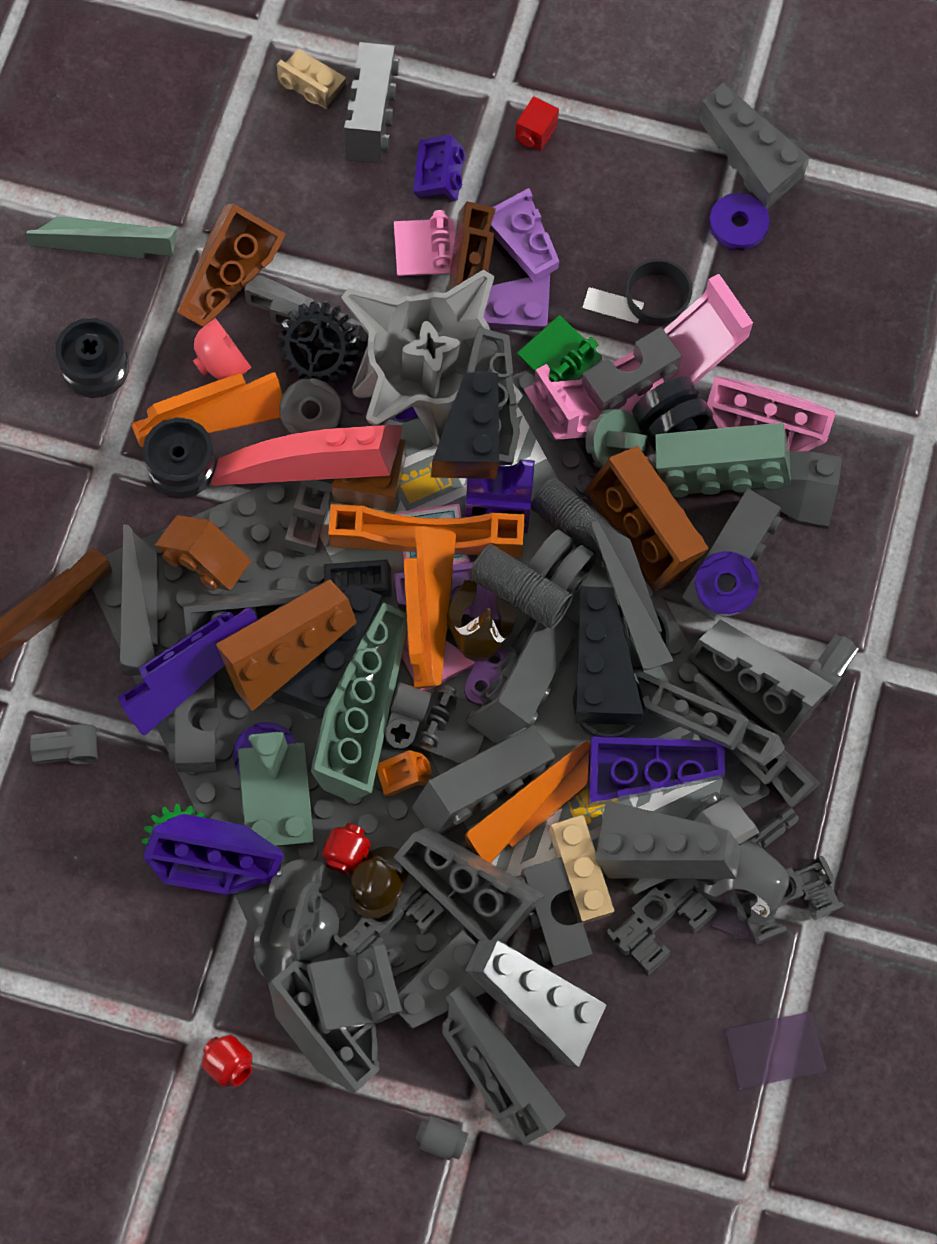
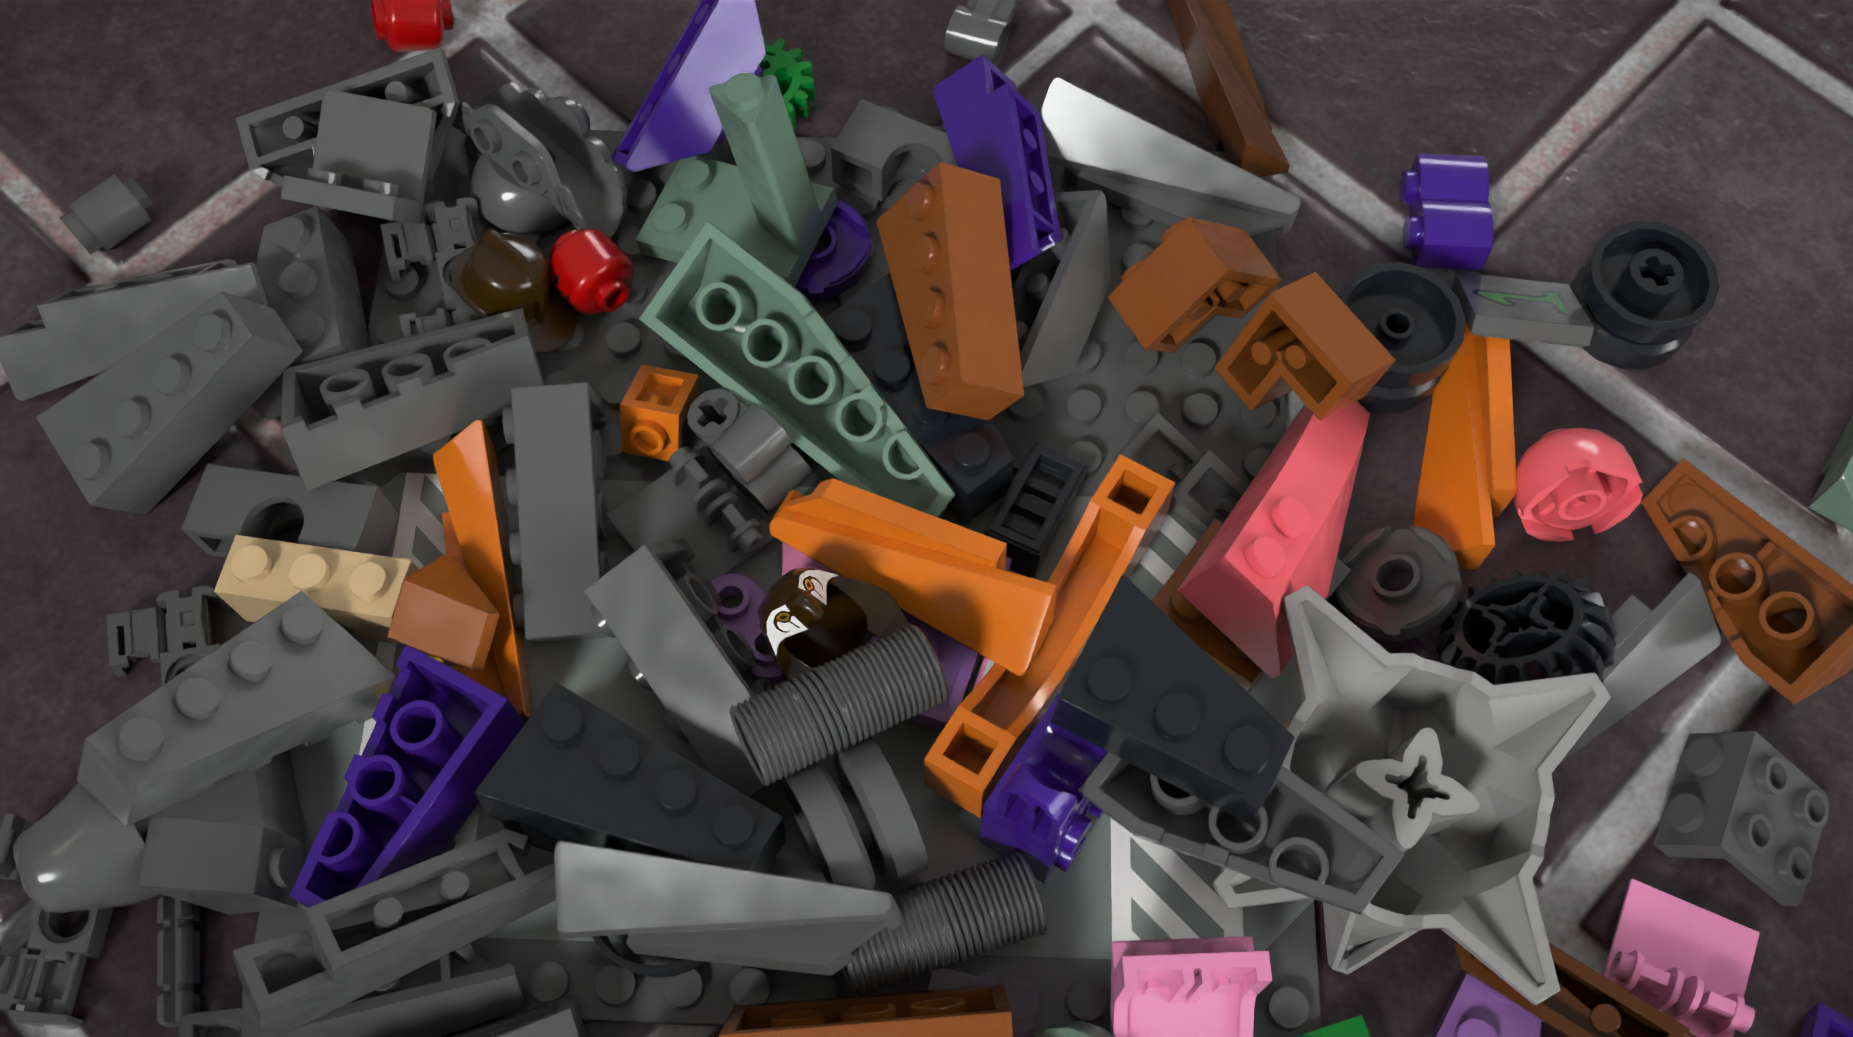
camera: 120 degrees right, 5 degrees down
(80, 463) = (1447, 211): none -> dark purple brick
(129, 407) = (1522, 310): none -> dark grey tile
(221, 481) = (1305, 344): none -> dark orange brick
(344, 241) = (1745, 806): none -> dark grey bracket
(565, 794) = (445, 614): none -> dark orange slope

